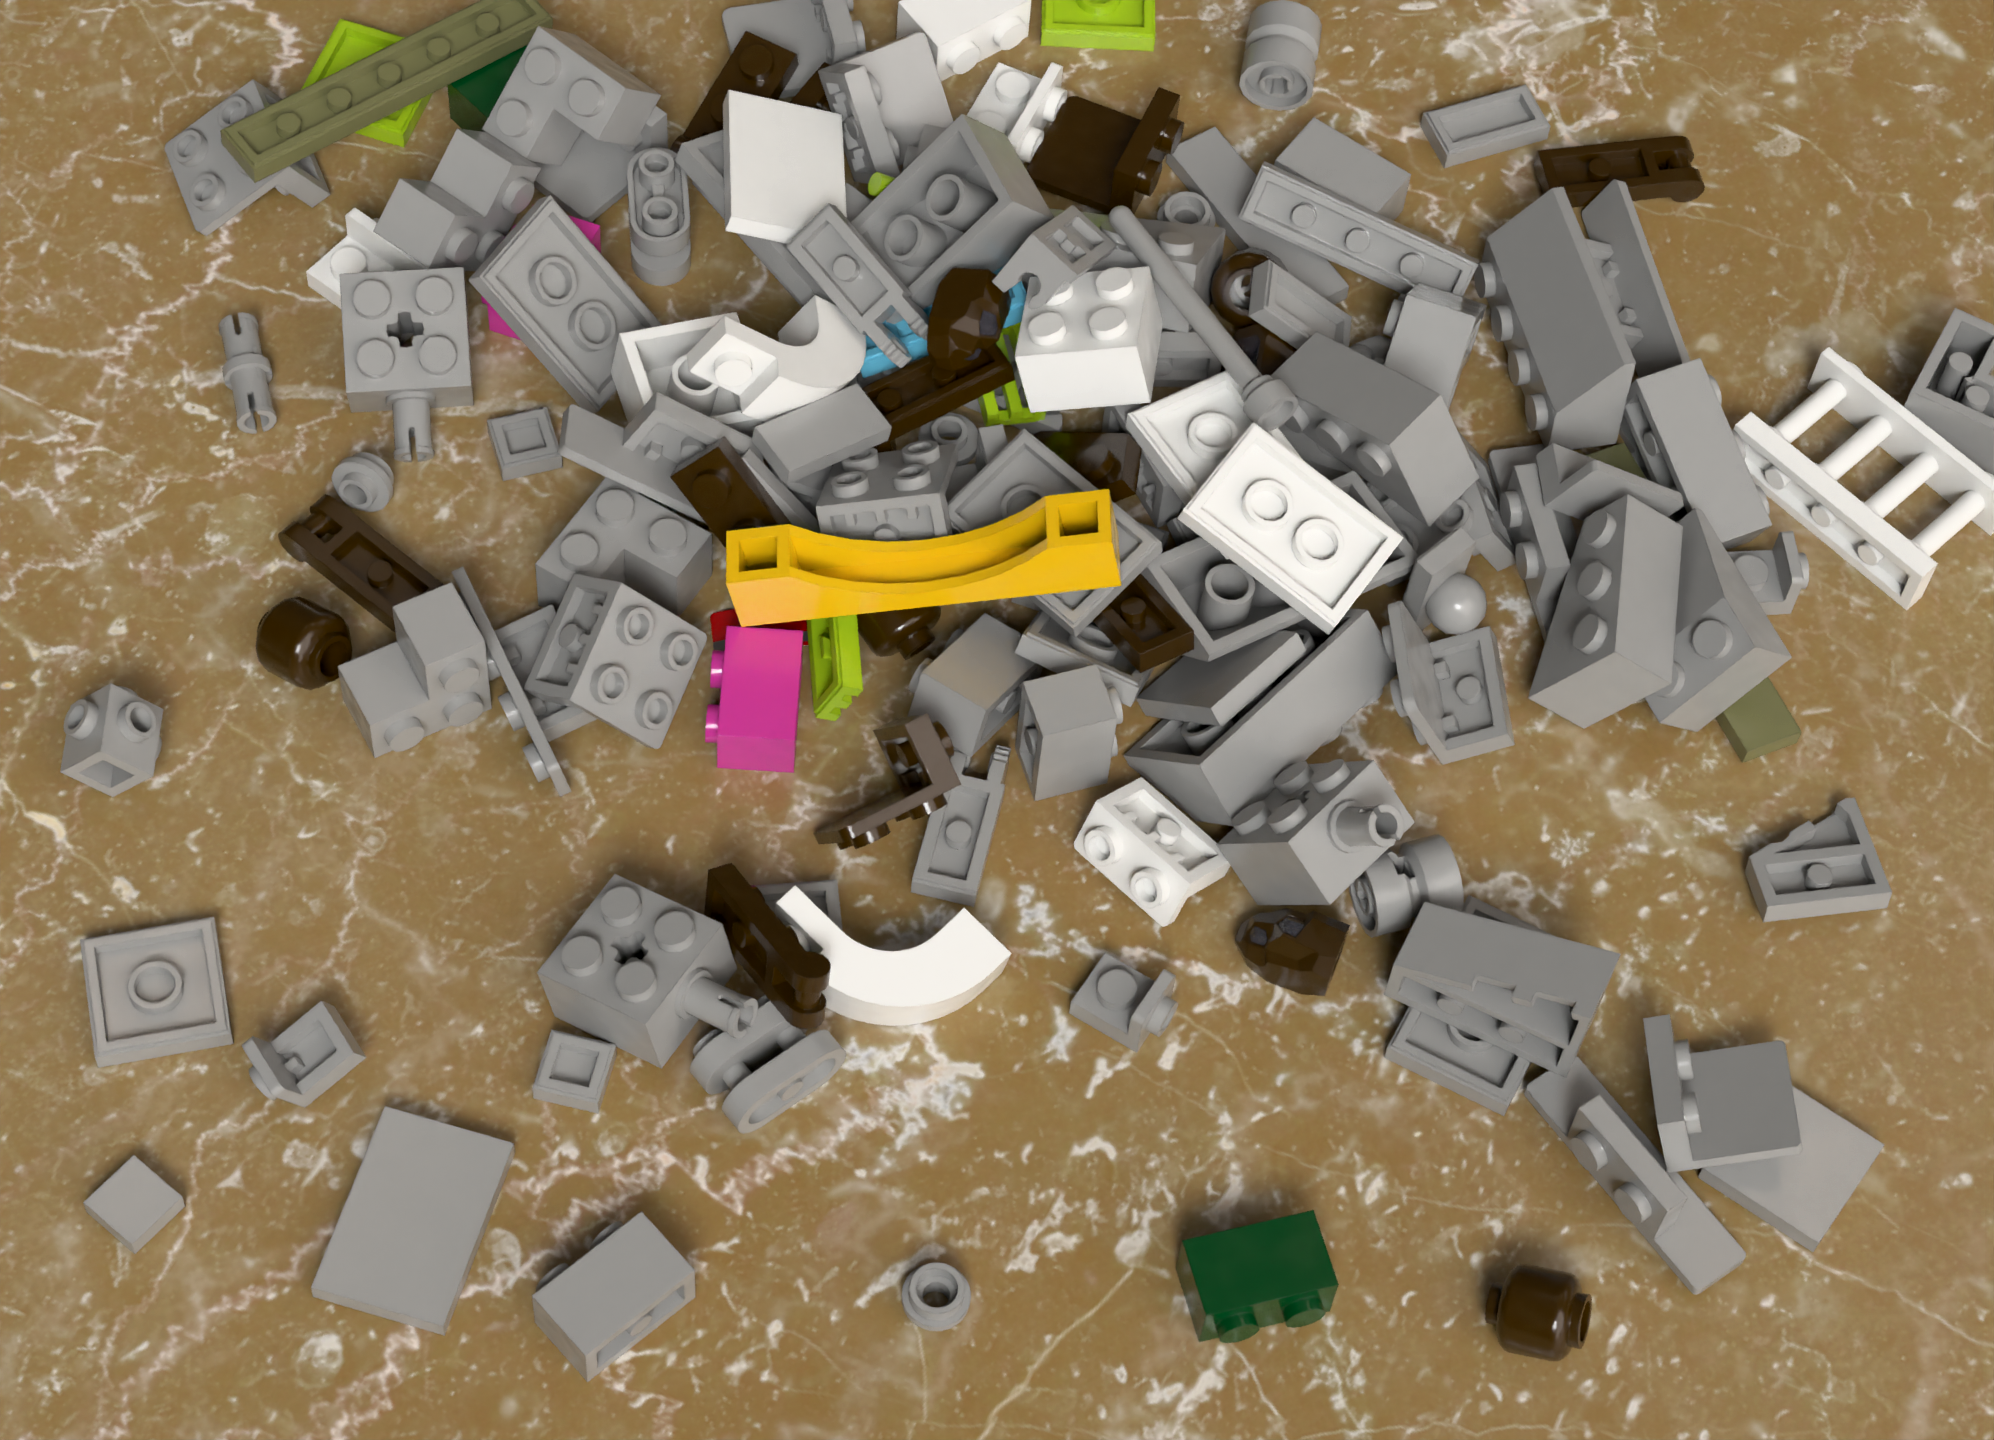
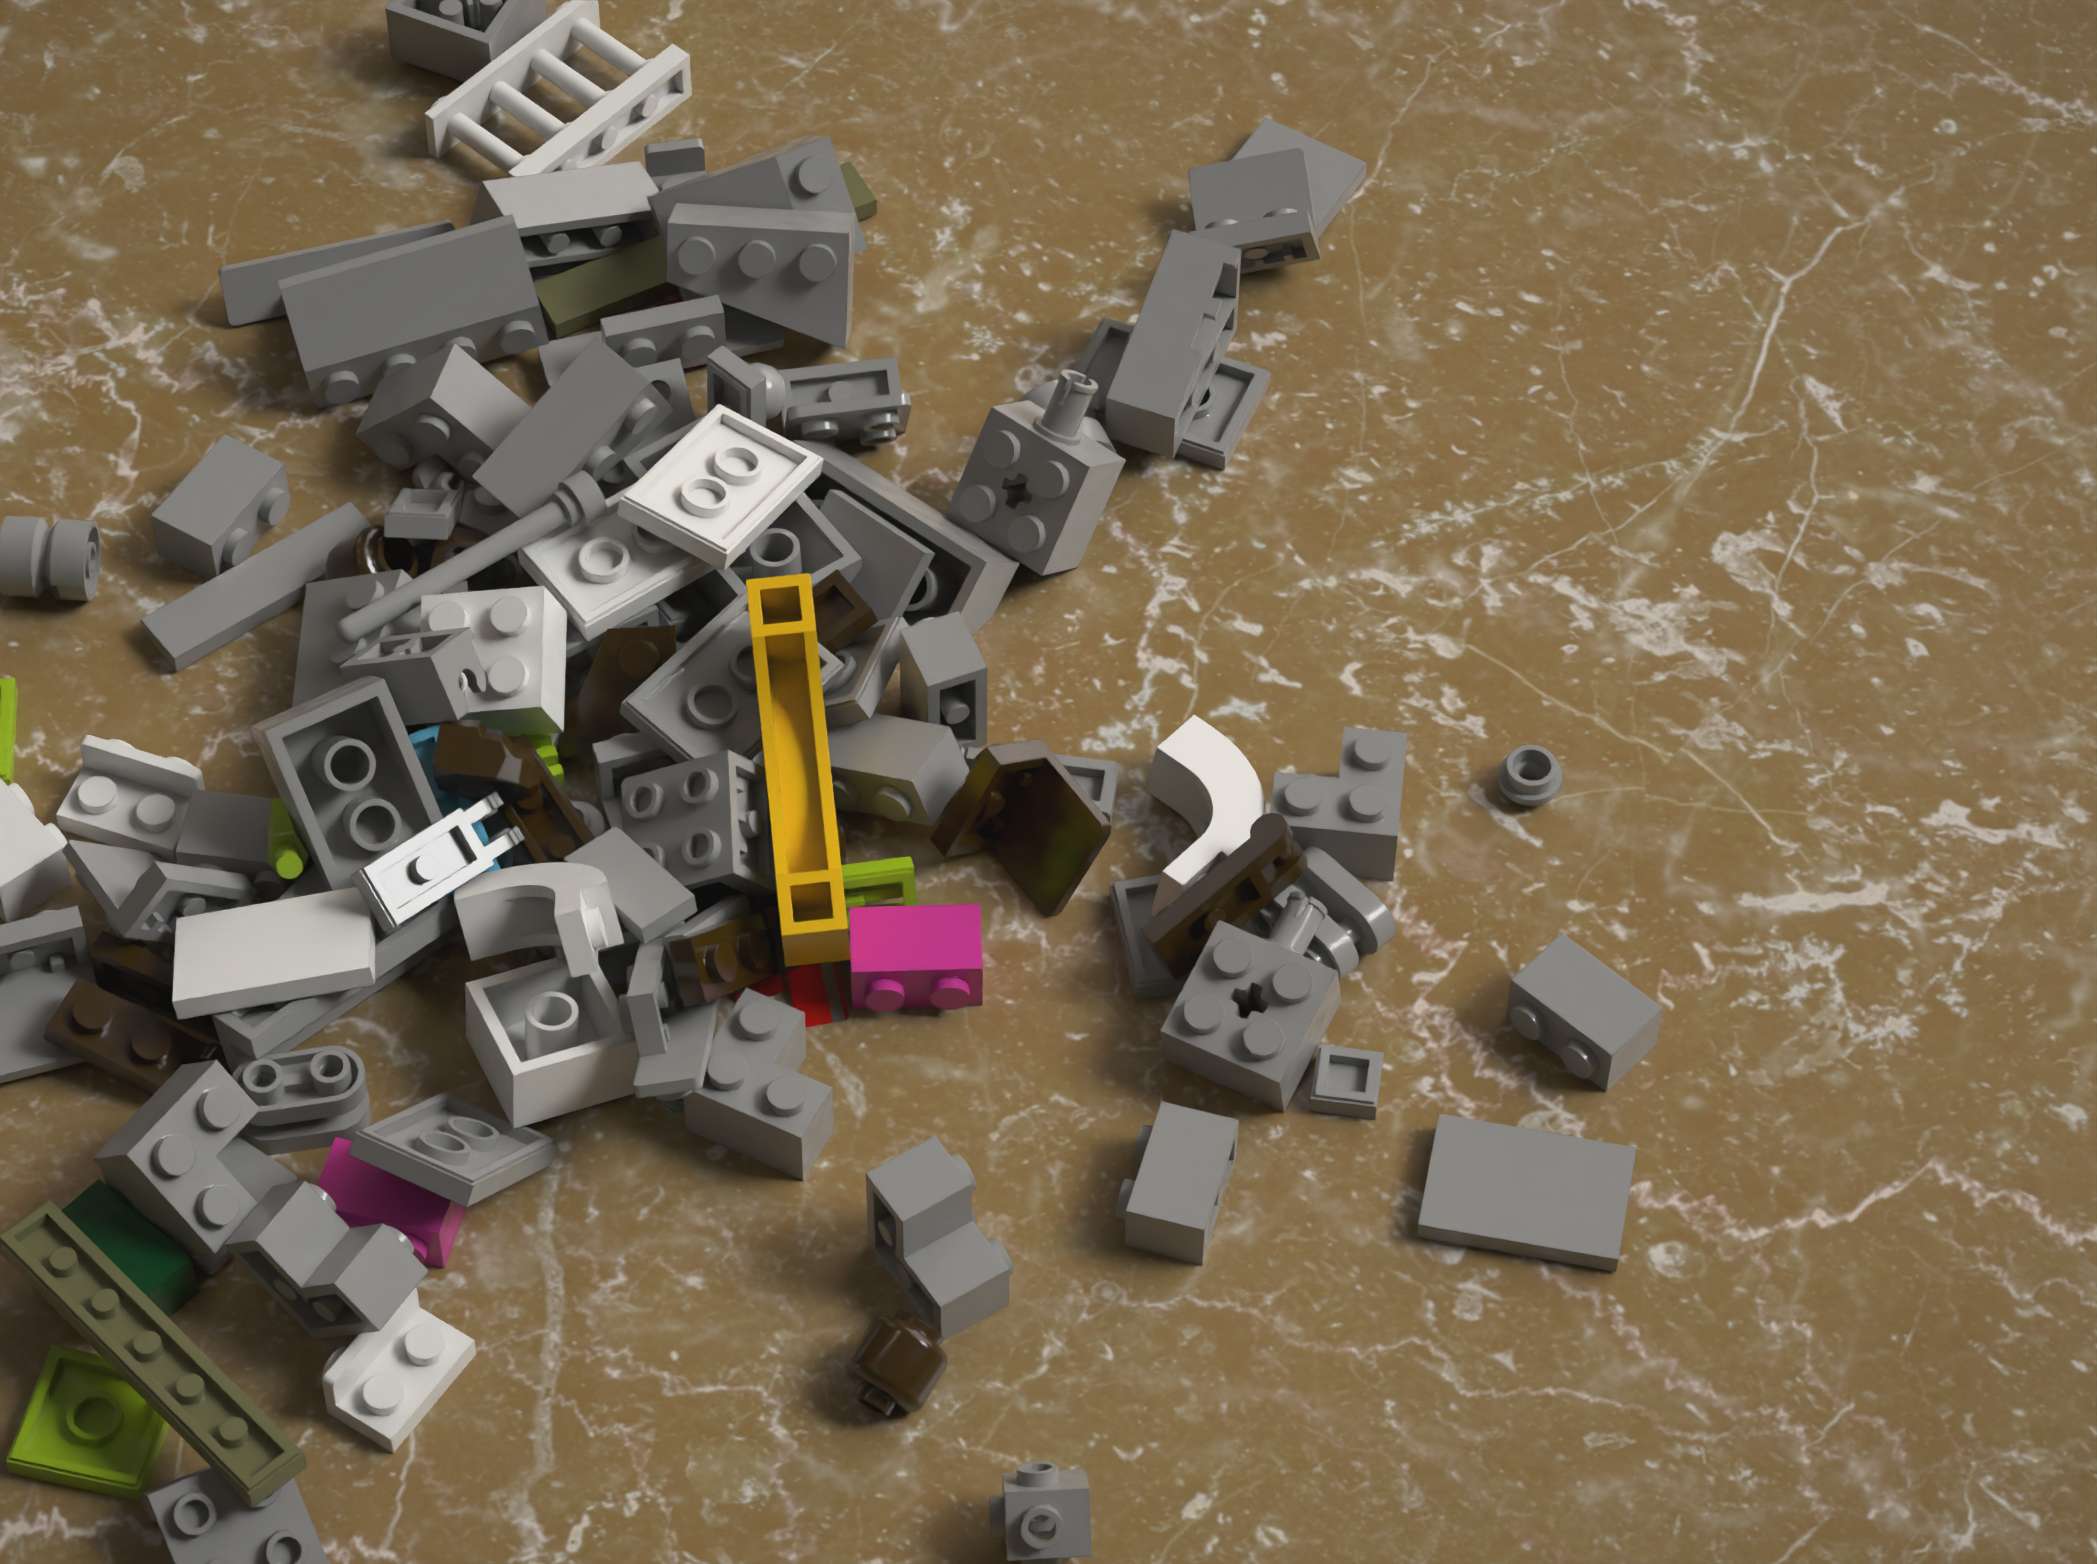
camera: 90 degrees left, 5 degrees down
(134, 1204) = (1554, 1428): light grey tile -> none
(156, 992) = (1316, 1450): light grey tile -> none
(247, 373) = (534, 1480): light grey pin -> none
(304, 1057) = (1378, 1294): light grey bracket -> none
(356, 559) = (785, 1329): dark brown plate -> none
(364, 482) = (680, 1340): light grey plate -> none
(412, 378) = (512, 1304): light grey brick -> none
(463, 897) = (1179, 1182): none -> light grey brick
(512, 654) = (904, 1127): light grey bracket -> none
(524, 443) = (603, 1209): light grey tile -> none
(617, 658) = (903, 1069): light grey bracket -> none
(888, 1111) = (1353, 814): none -> light grey brick
(1105, 154) = (191, 696): dark brown bracket -> none
(1125, 1002) = (1208, 648): light grey bracket -> none
(1149, 849) = (1046, 634): white bracket -> none
(1187, 208) = (262, 630): light grey plate -> none
(1257, 1277) = (1475, 539): dark green brick -> none
(1293, 948) = (1135, 522): dark brown rock -> none
(1353, 235) = (302, 484): light grey tile -> none
(1485, 126) = (121, 401): light grey tile -> none
(1539, 1312) = (1471, 343): dark brown head -> none
(1584, 485) = (623, 283): light grey panel -> none
(1590, 168) = (188, 290): dark brown plate -> none
(1636, 1176) = (1323, 285): light grey bracket -> none
(1820, 870) = (991, 152): light grey wing -> none

